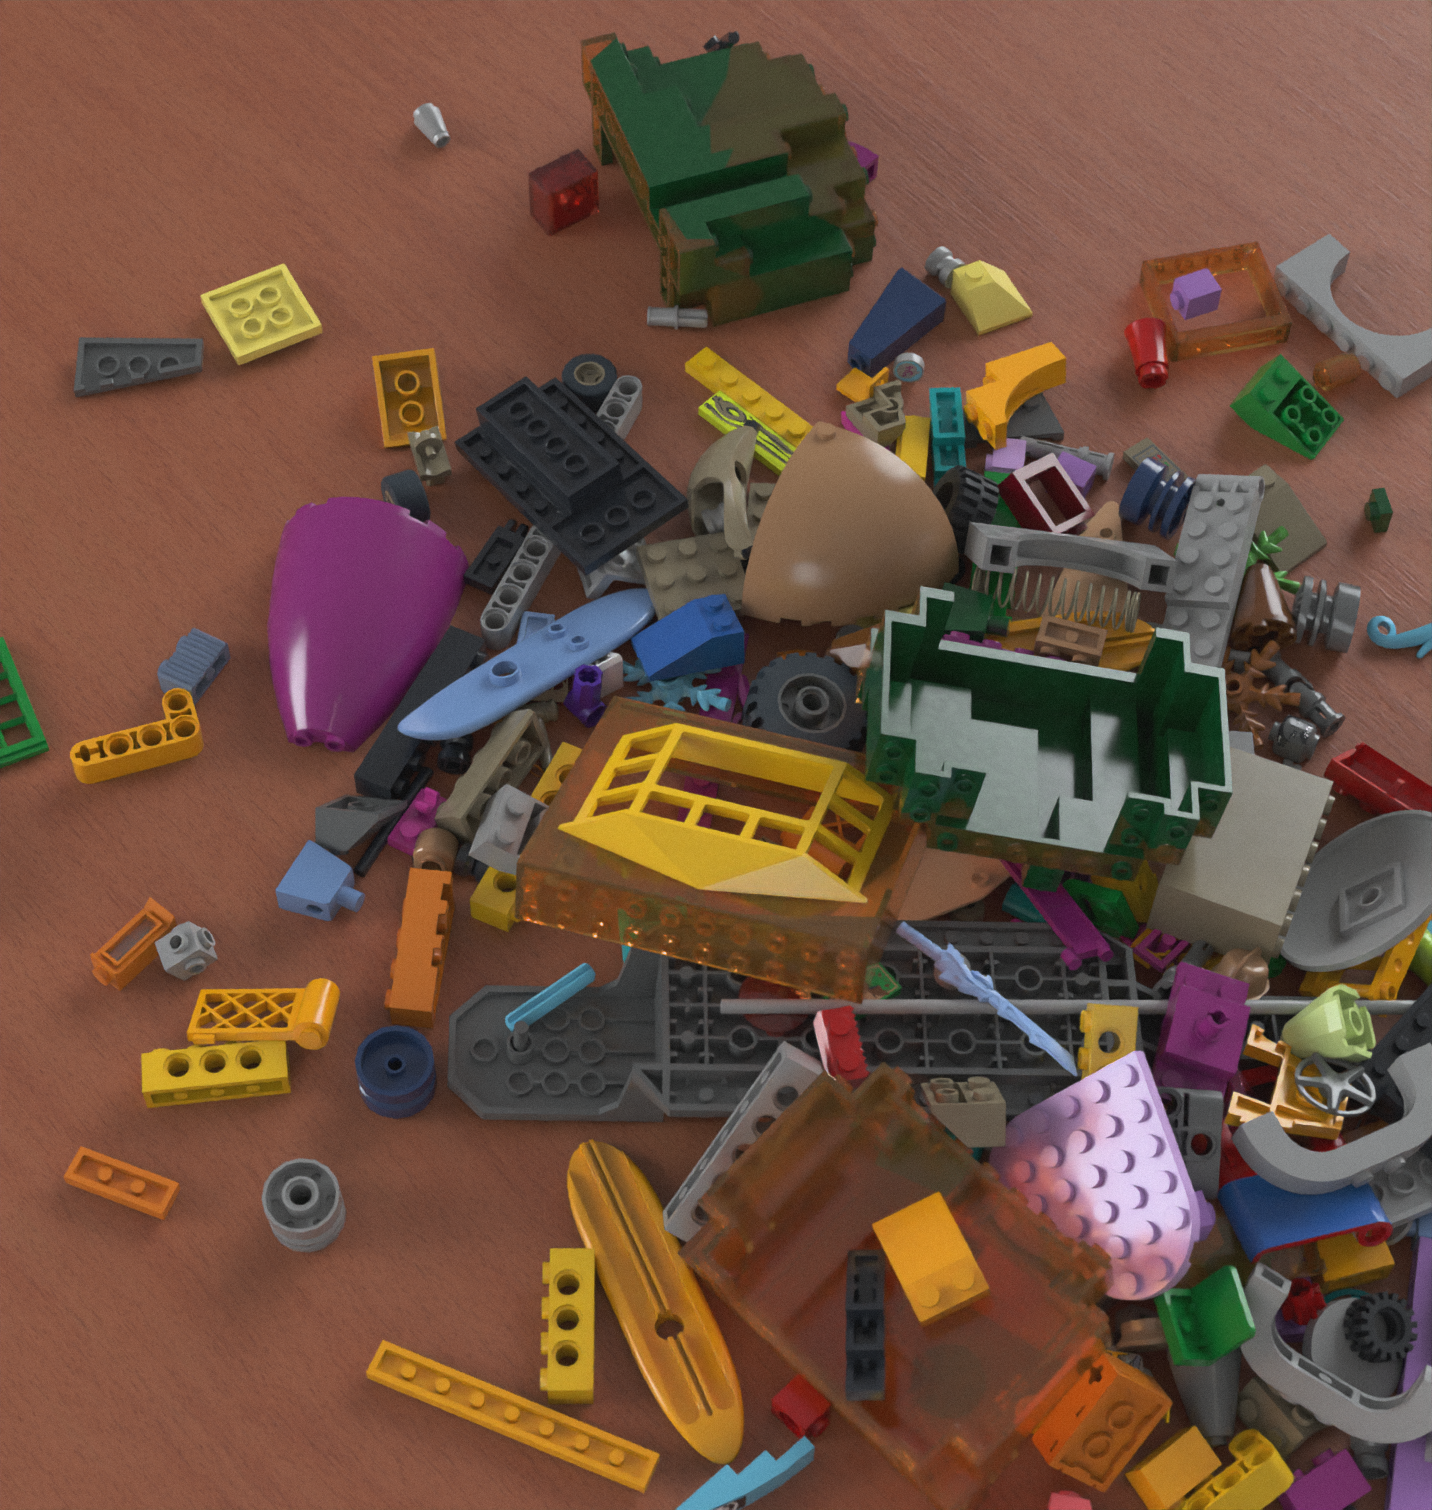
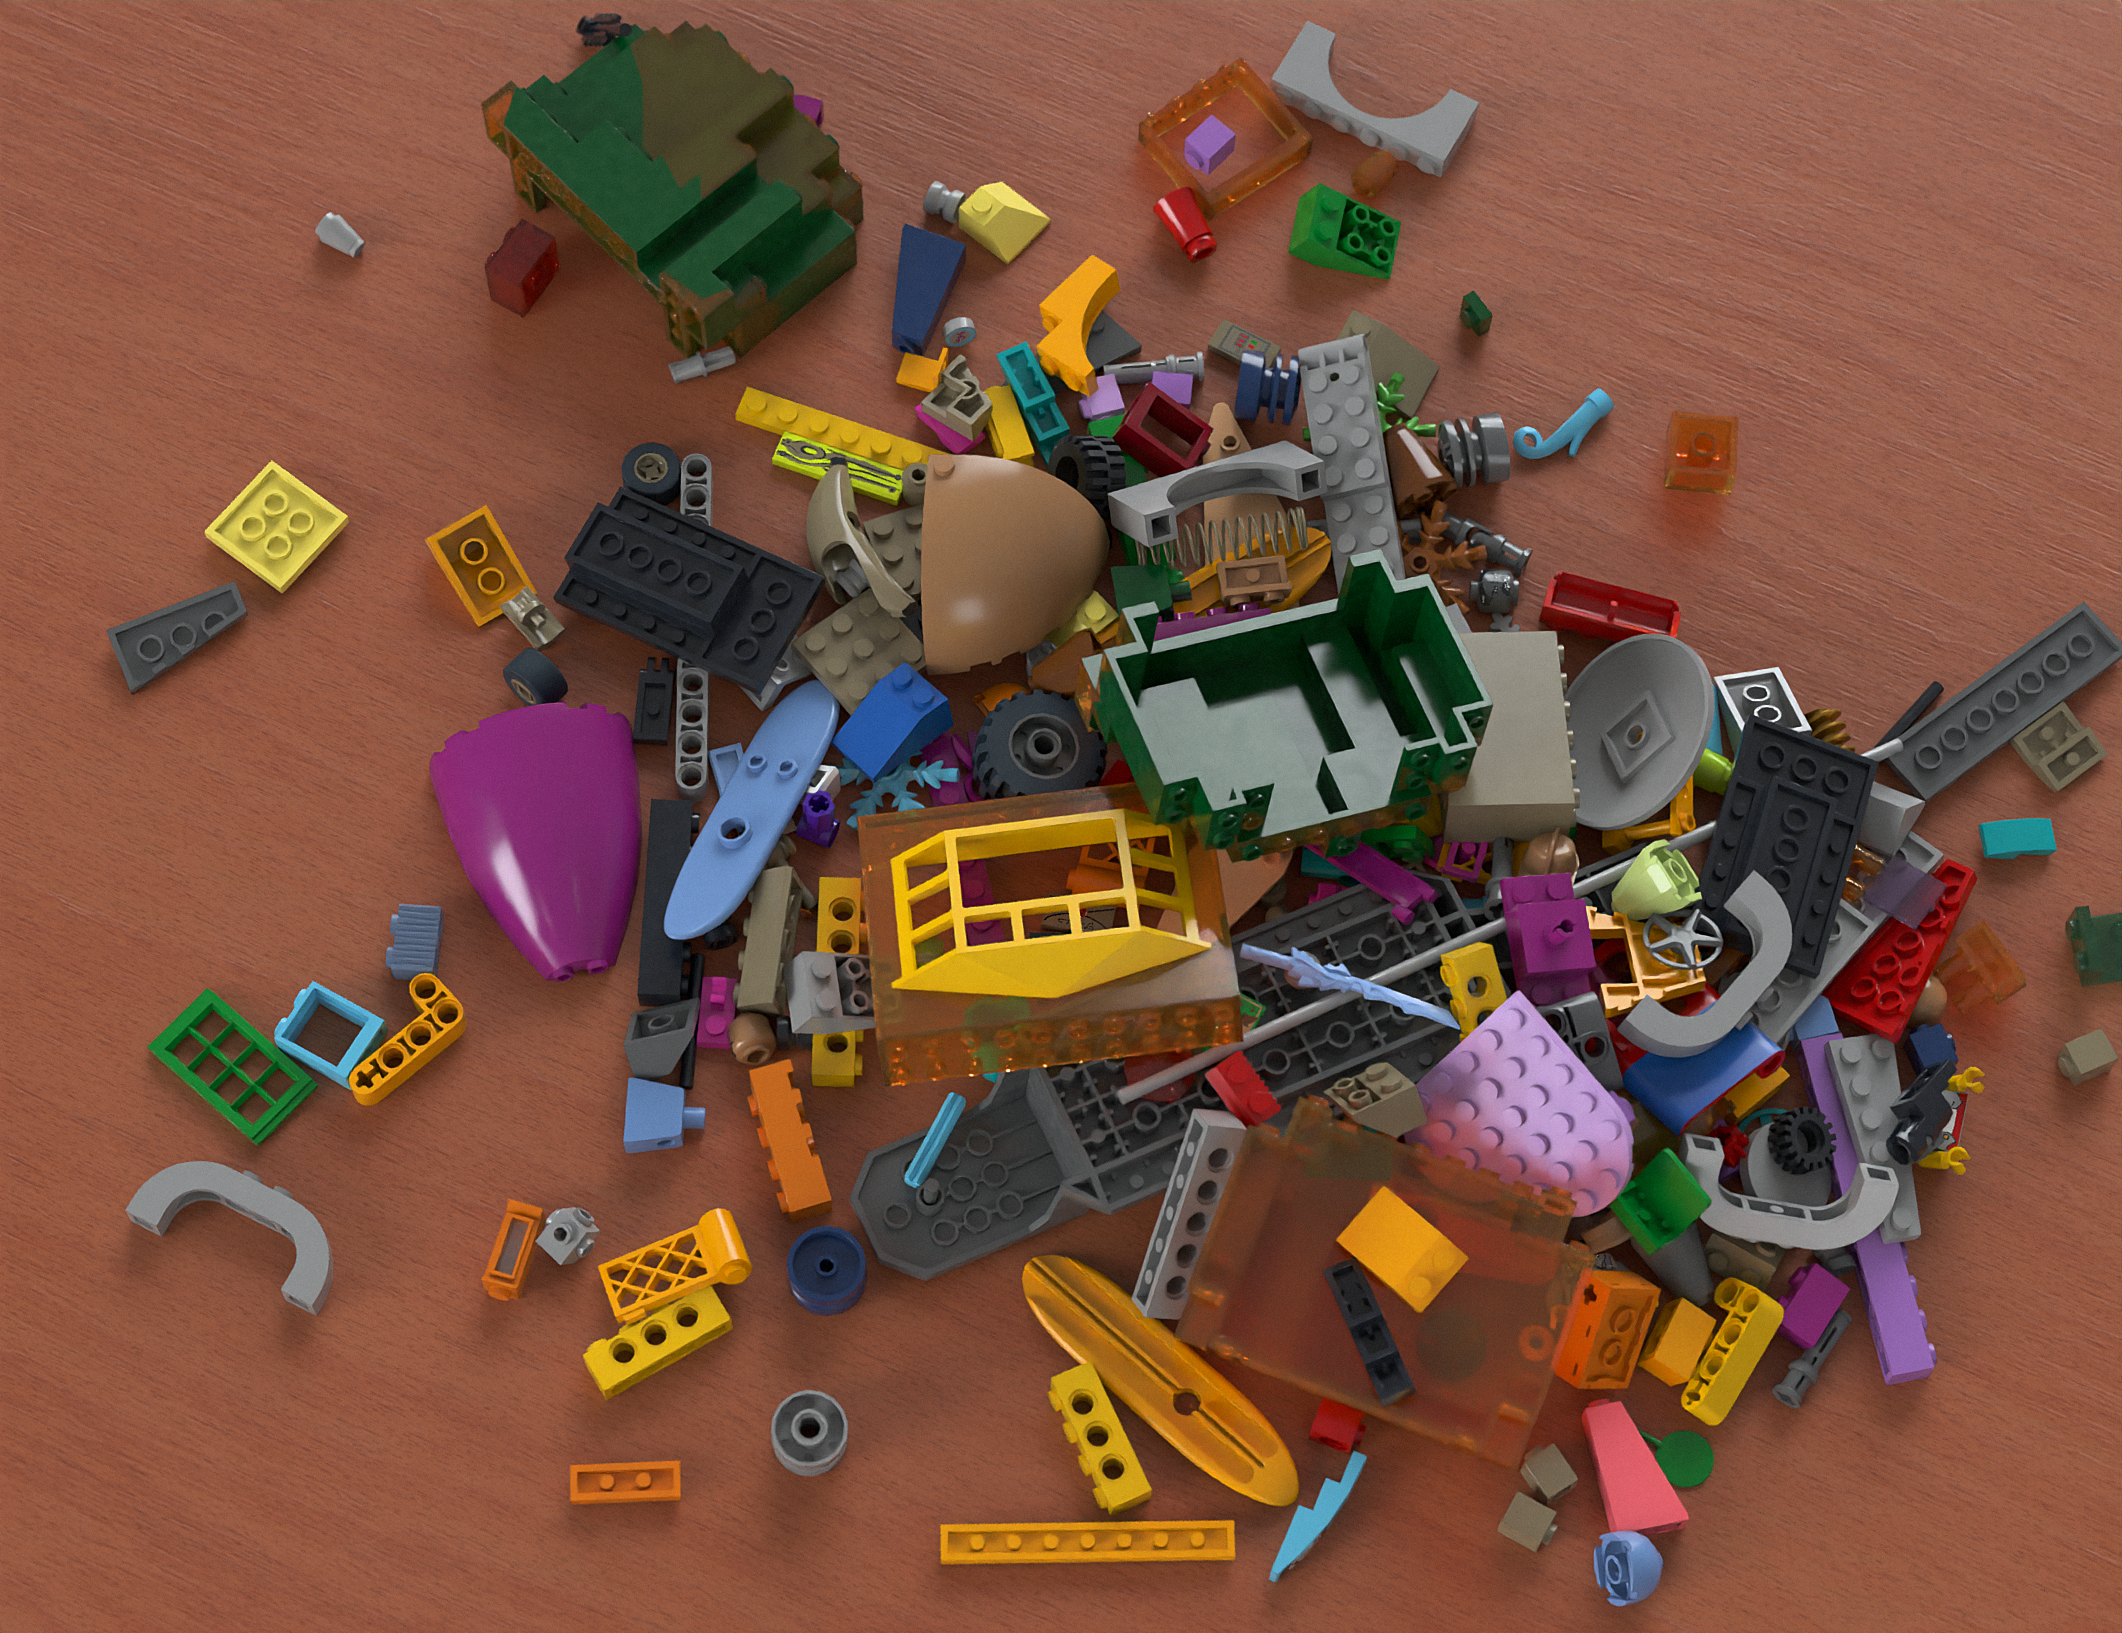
camera: 25 degrees left, 10 degrees up
(74, 680) = (305, 1004): none -> medium azure window

